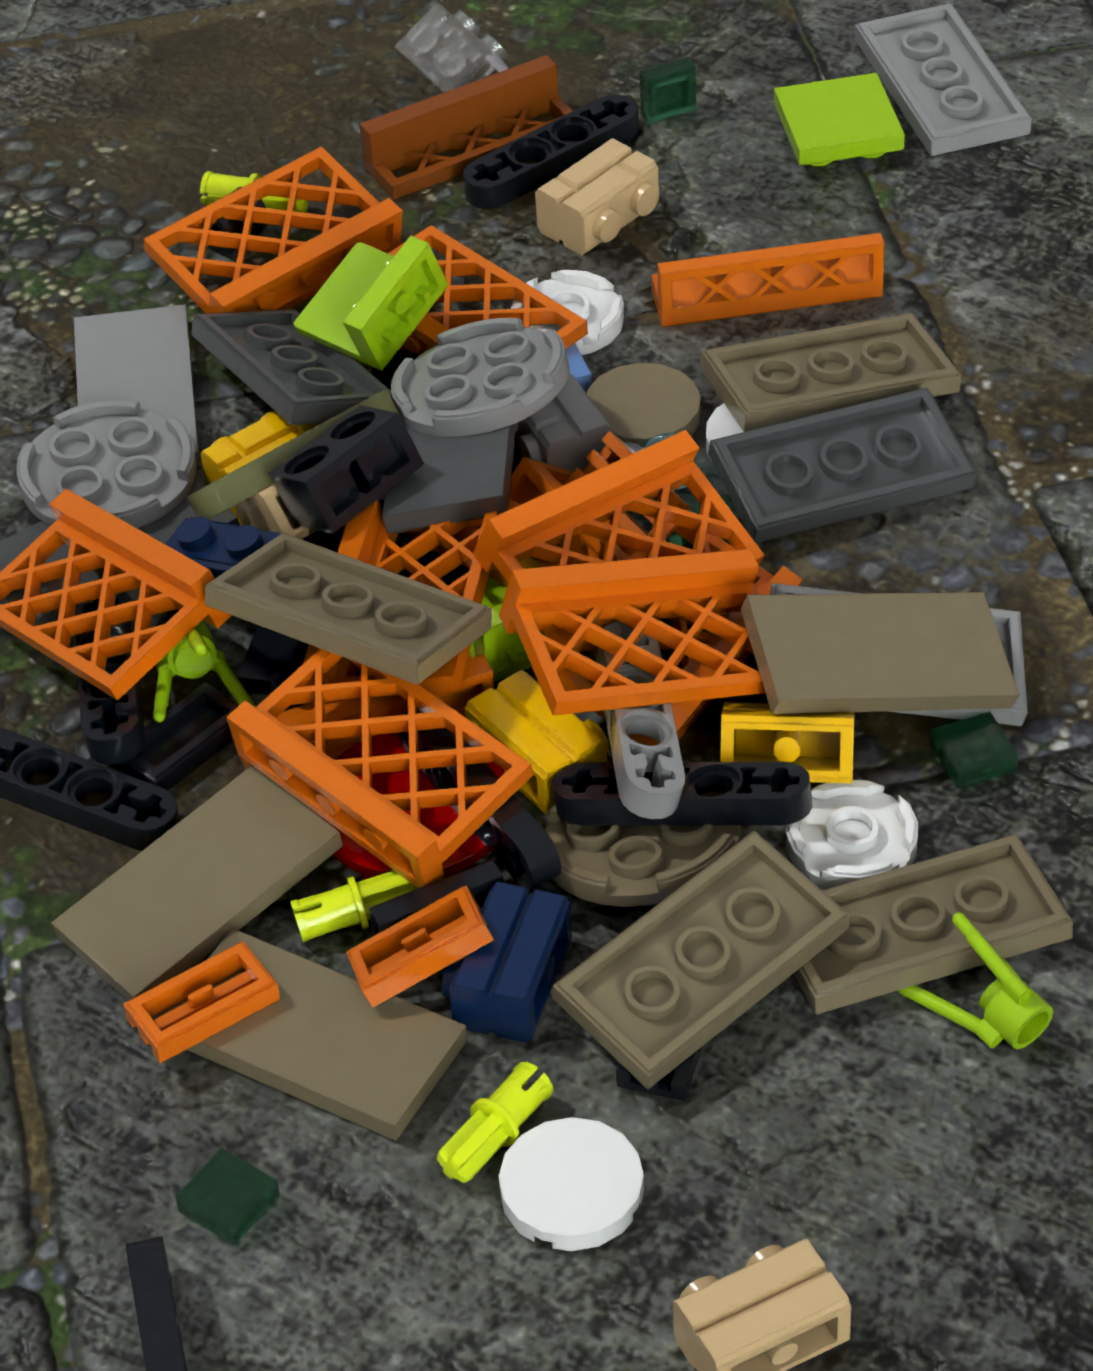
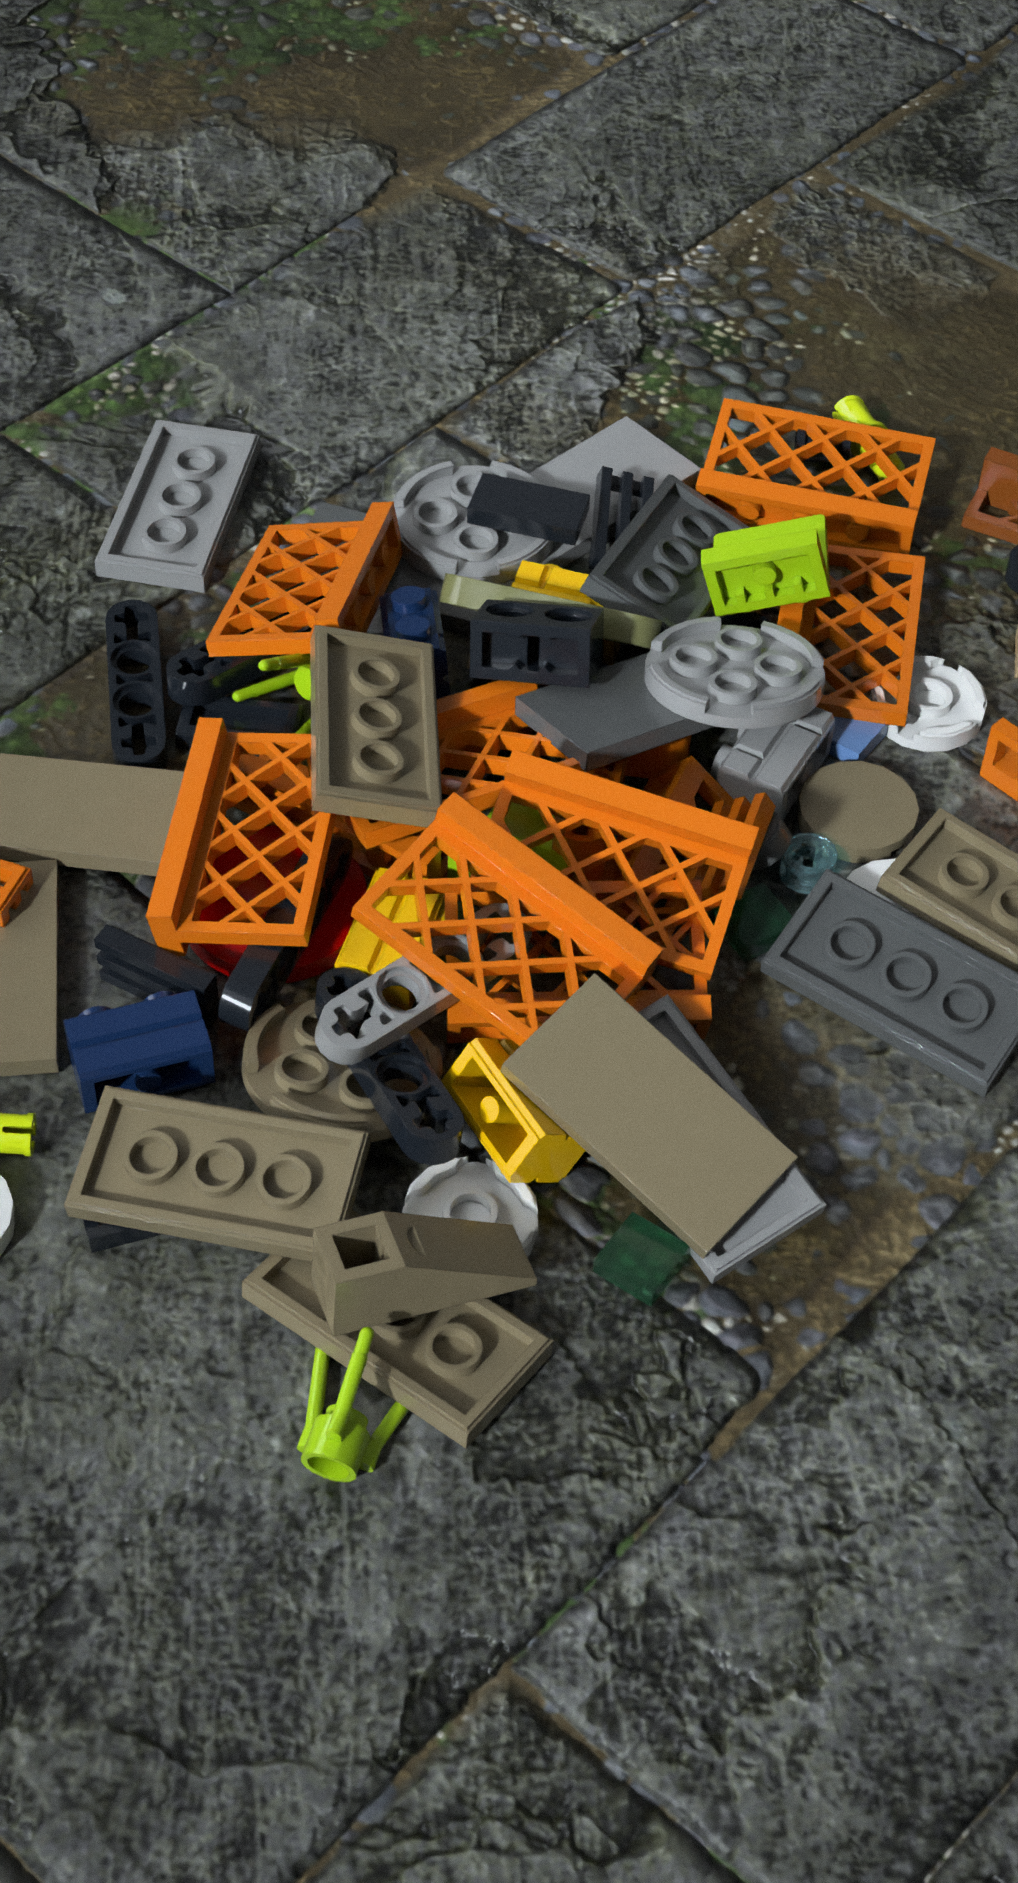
camera: 50 degrees right, 5 degrees up
(147, 417) = (528, 509): none -> black tile
(202, 379) = (626, 489): none -> black tile
(346, 904) = (120, 910): neon yellow axle -> none
(419, 946) = (93, 978): orange tile -> none
(906, 875) = (411, 1265): none -> dark tan slope

